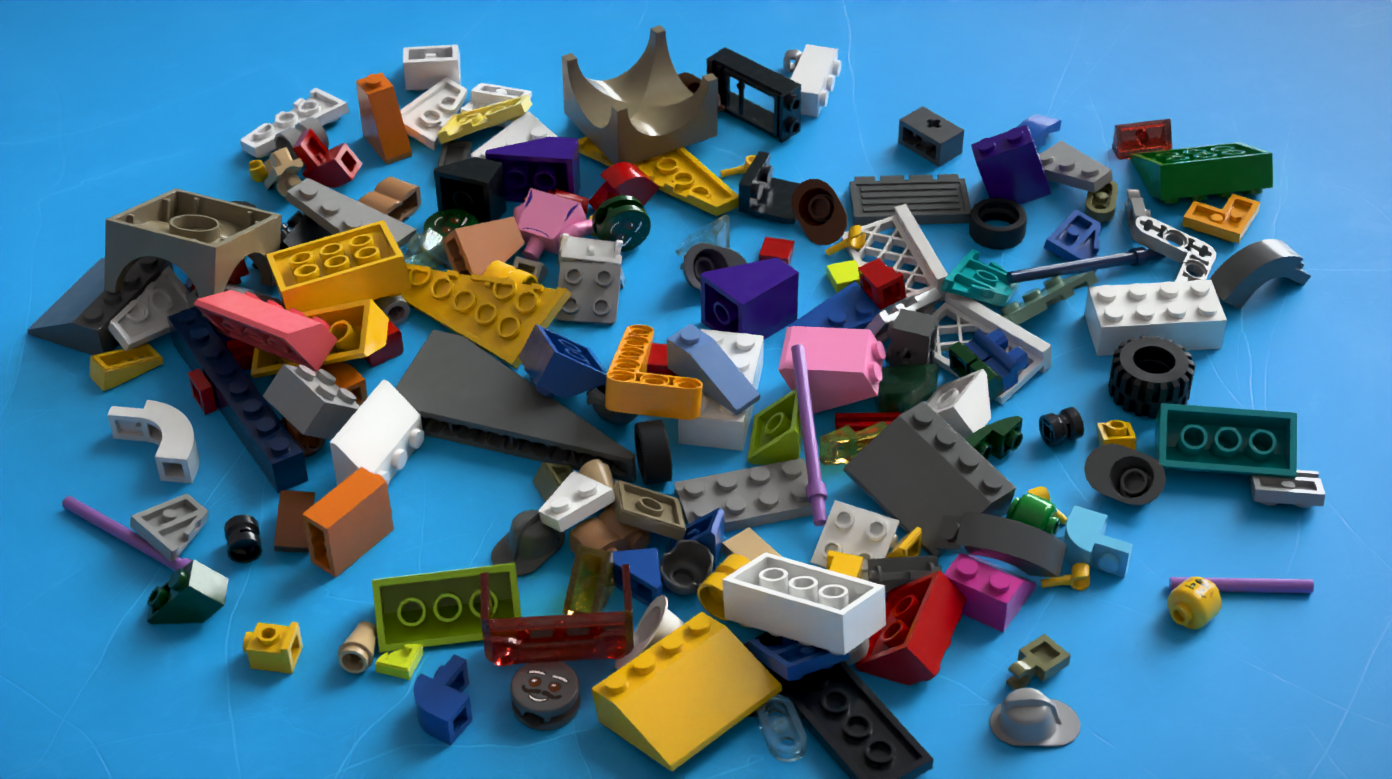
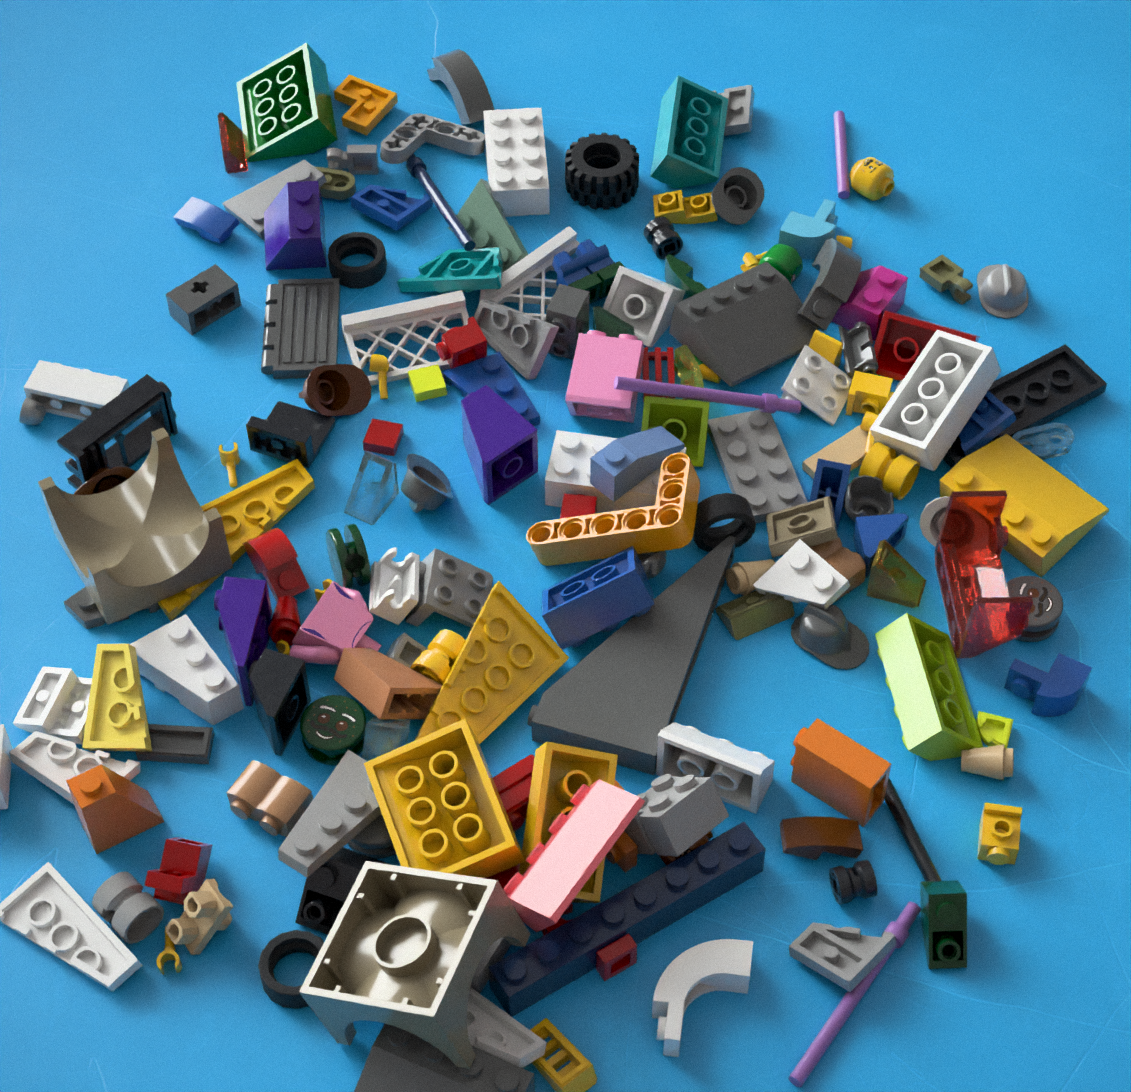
camera: 90 degrees left, 10 degrees up
(289, 590) = (910, 834): none -> black bar

